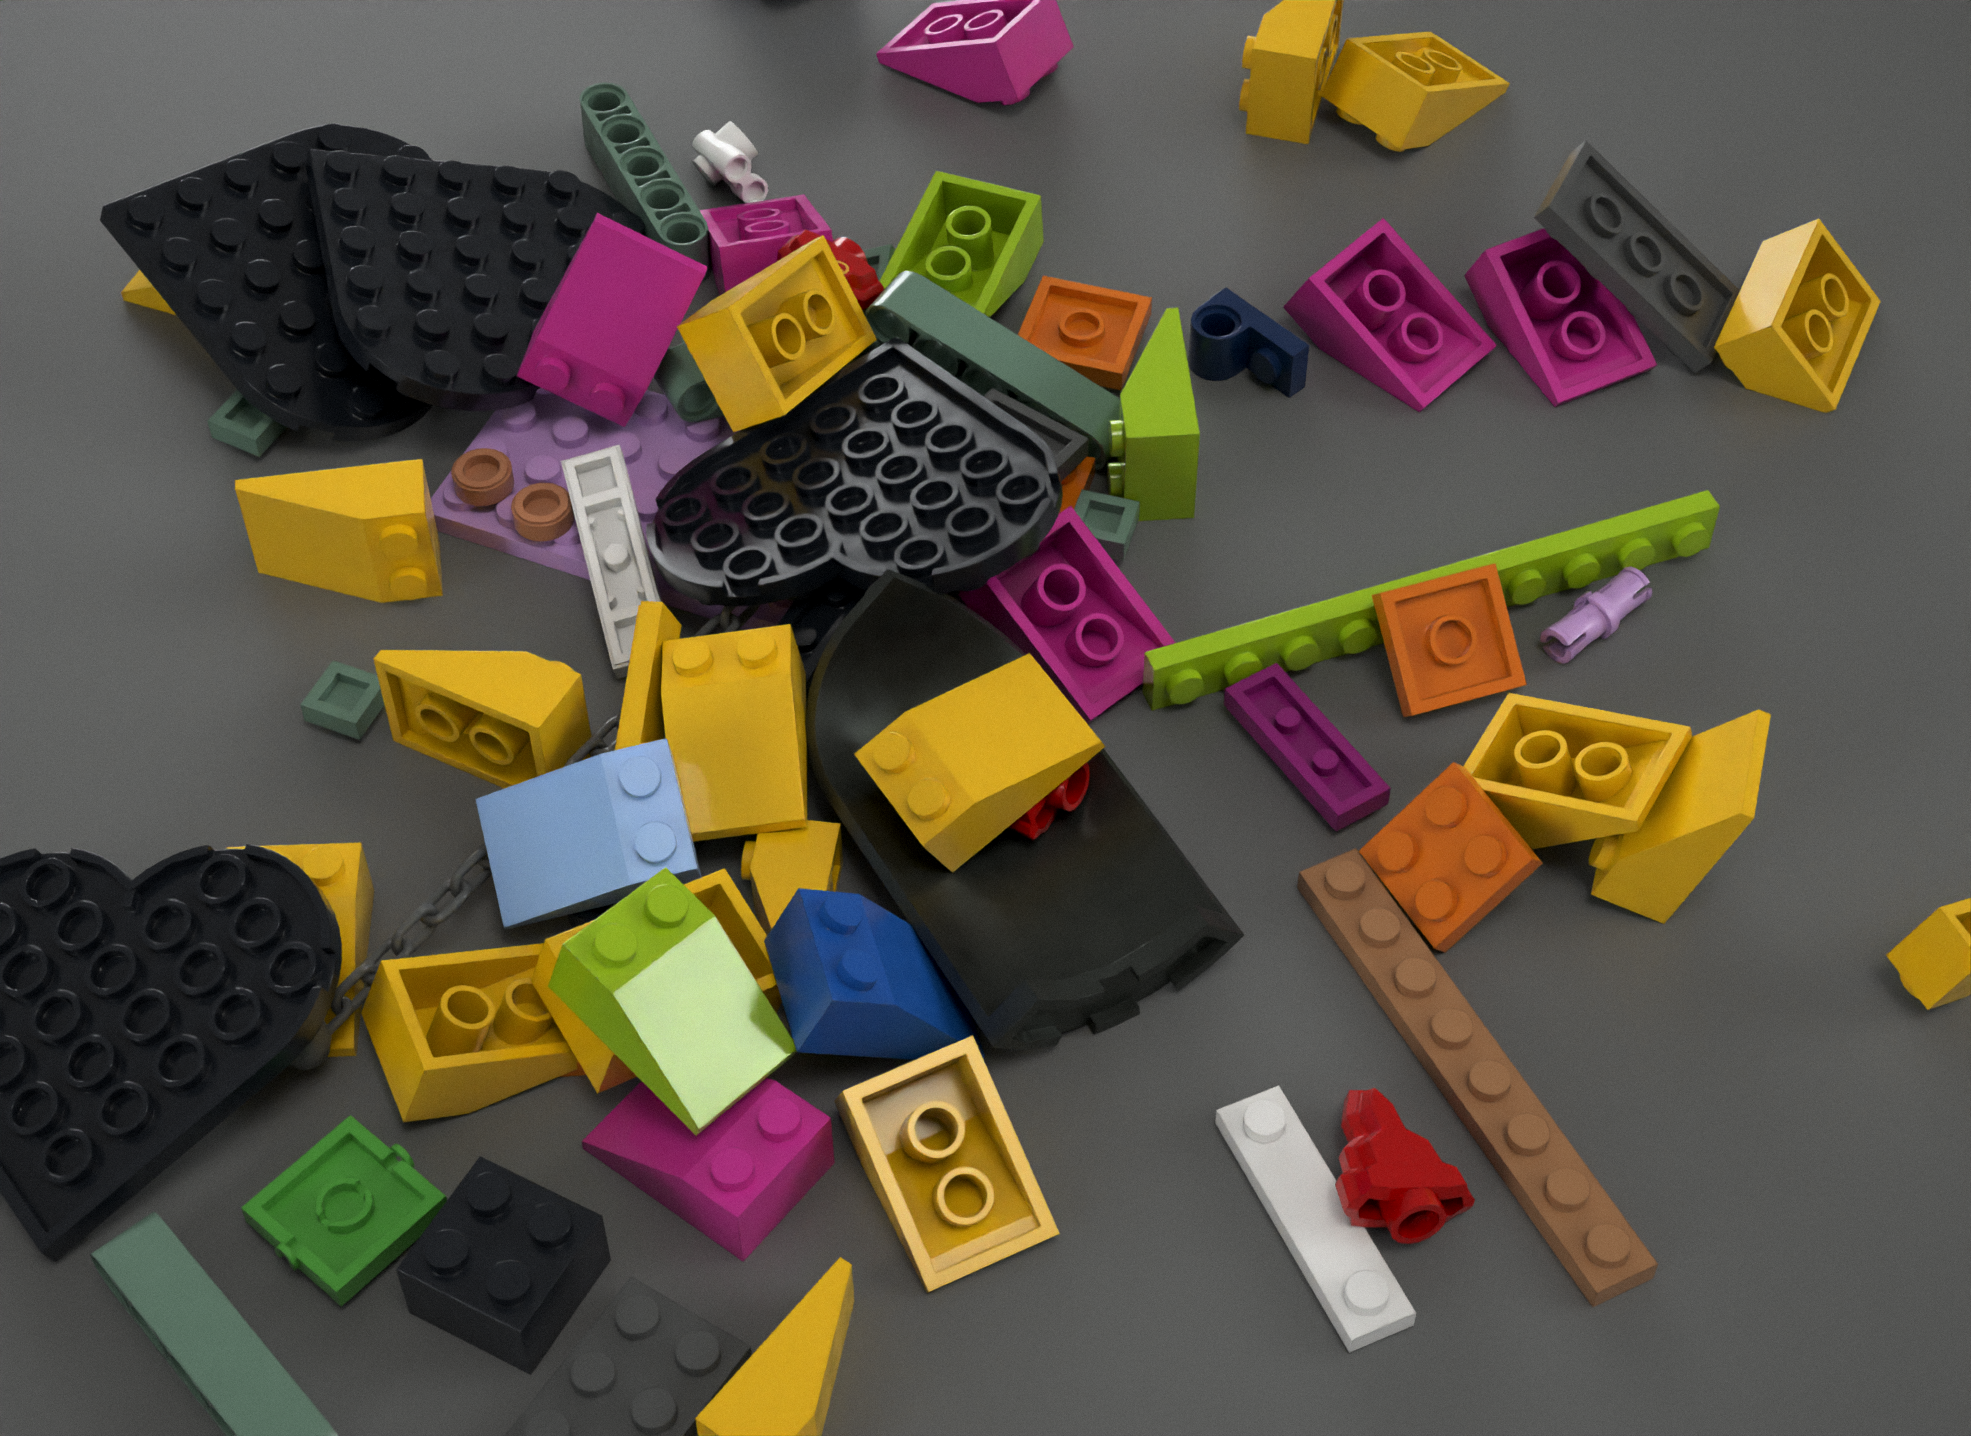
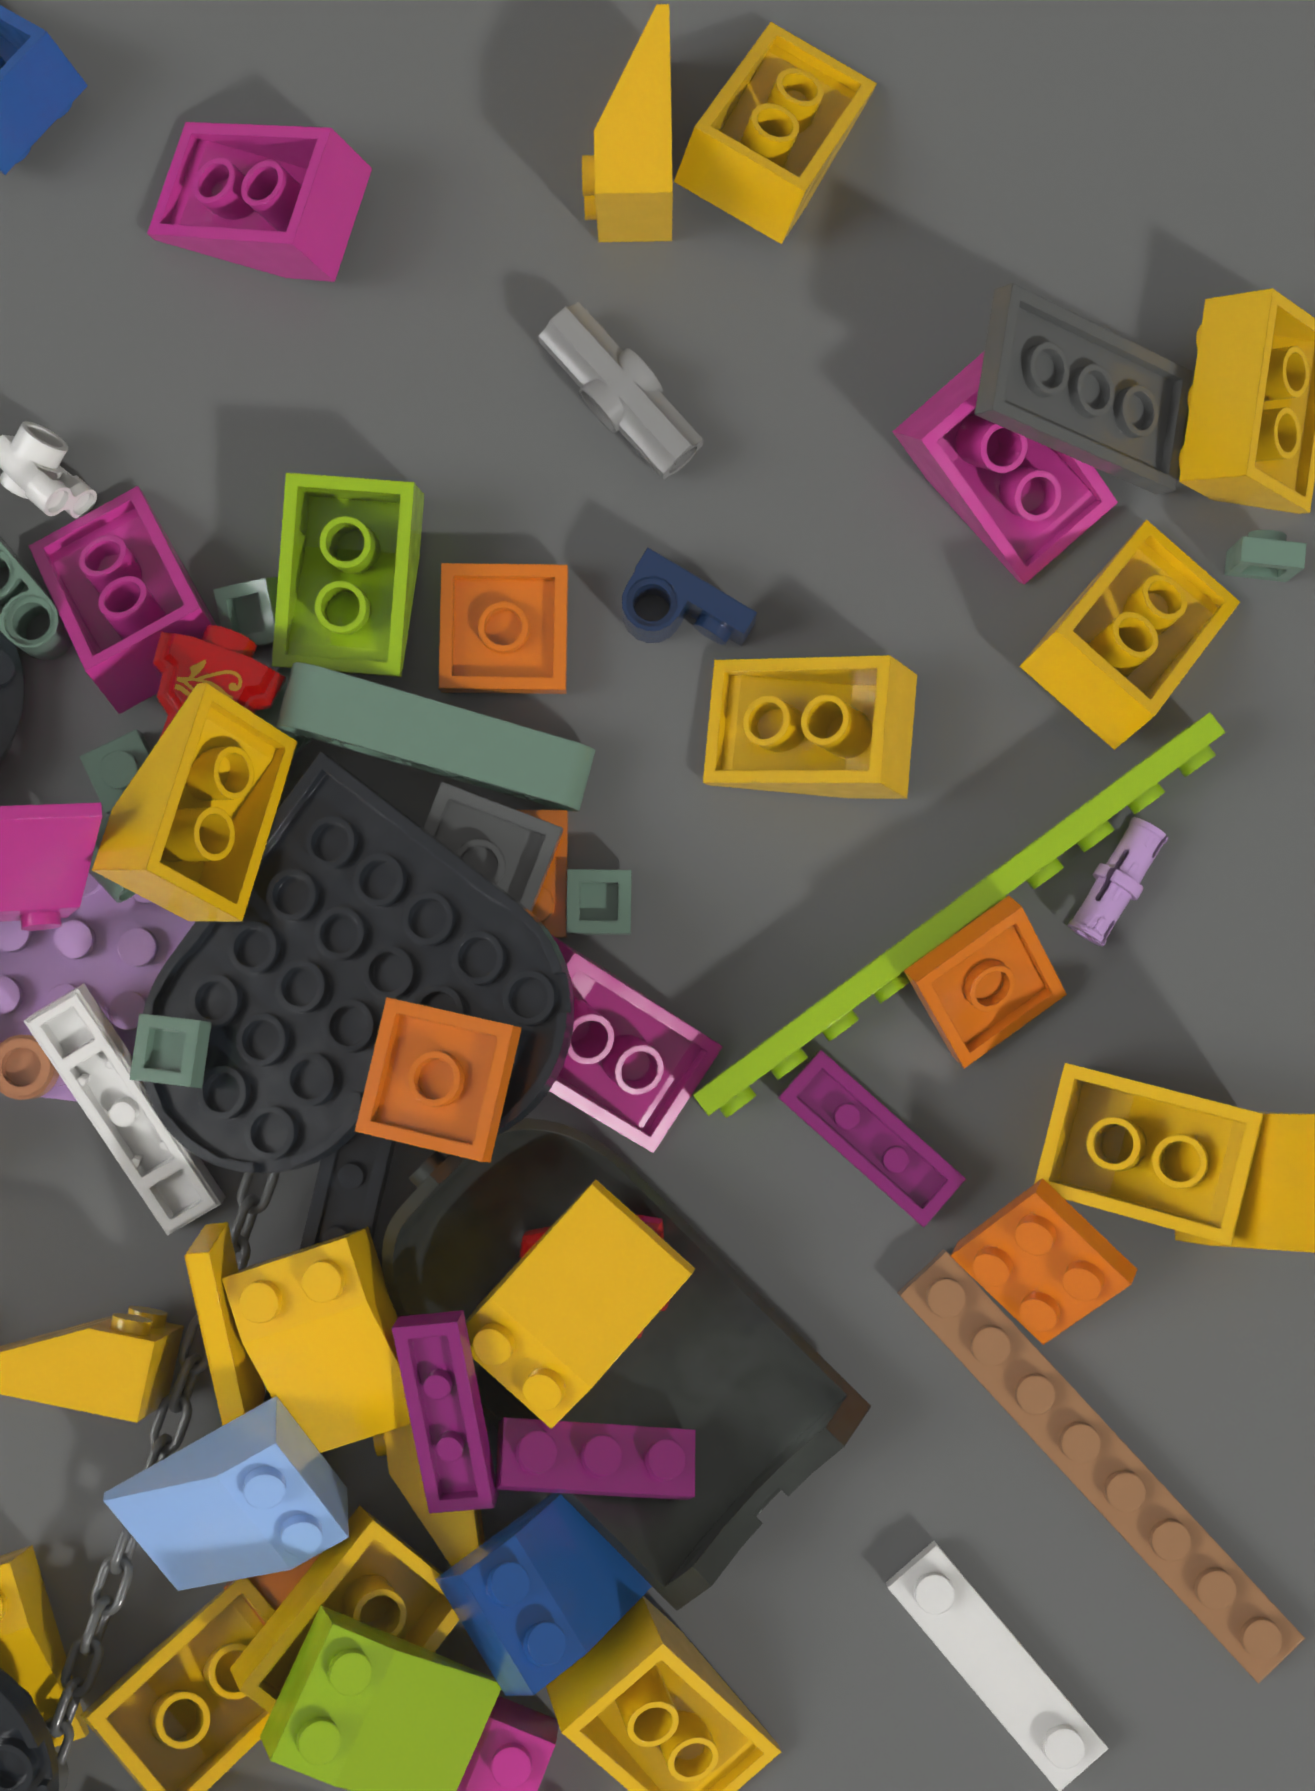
camera: 15 degrees left, 35 degrees up
(683, 490) = (170, 1050): none -> sand green plate
(828, 796) = (445, 1411): none -> magenta plate
(919, 517) = (438, 1080): none -> orange plate
(956, 901) = (595, 1459): none -> magenta plate
(1157, 430) = (628, 788): lime slope -> none
(1235, 209) = (620, 390): none -> light grey piece
(1341, 444) = (812, 726): none -> yellow slope
(1389, 318) = (827, 523): dark pink slope -> none
(1394, 1174) = (1059, 1615): red rock -> none
(1642, 443) = (1131, 636): none -> yellow slope
(1784, 418) = (1265, 556): none -> sand green plate

